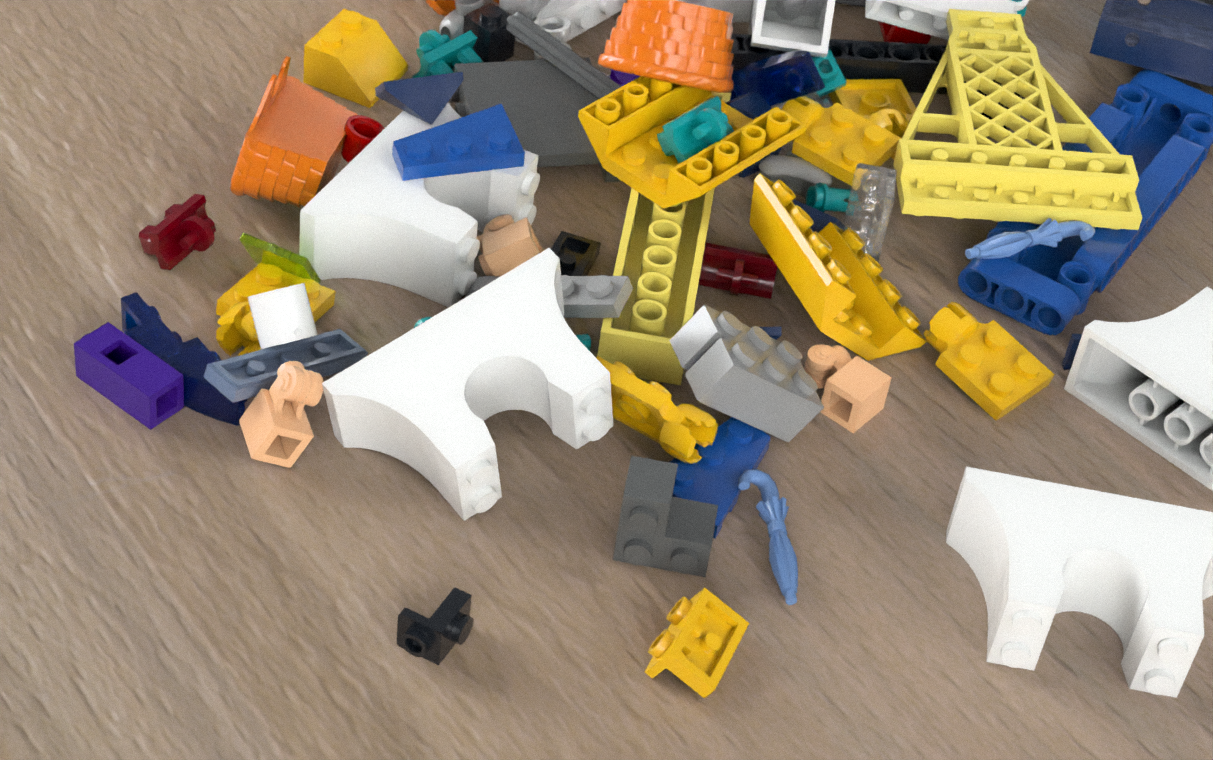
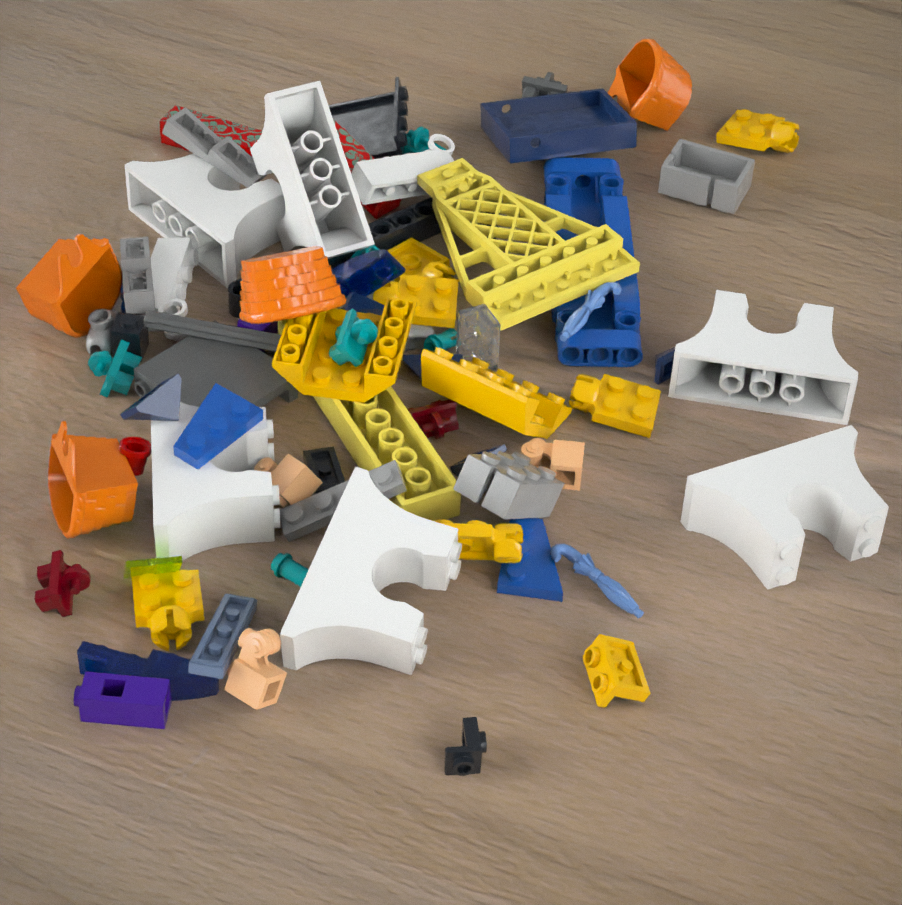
camera: 30 degrees left, 0 degrees up
(282, 315) = (201, 603): white piece -> none
(352, 58) = (55, 397): yellow slope -> none
(662, 528) = (536, 609): dark grey brick -> none

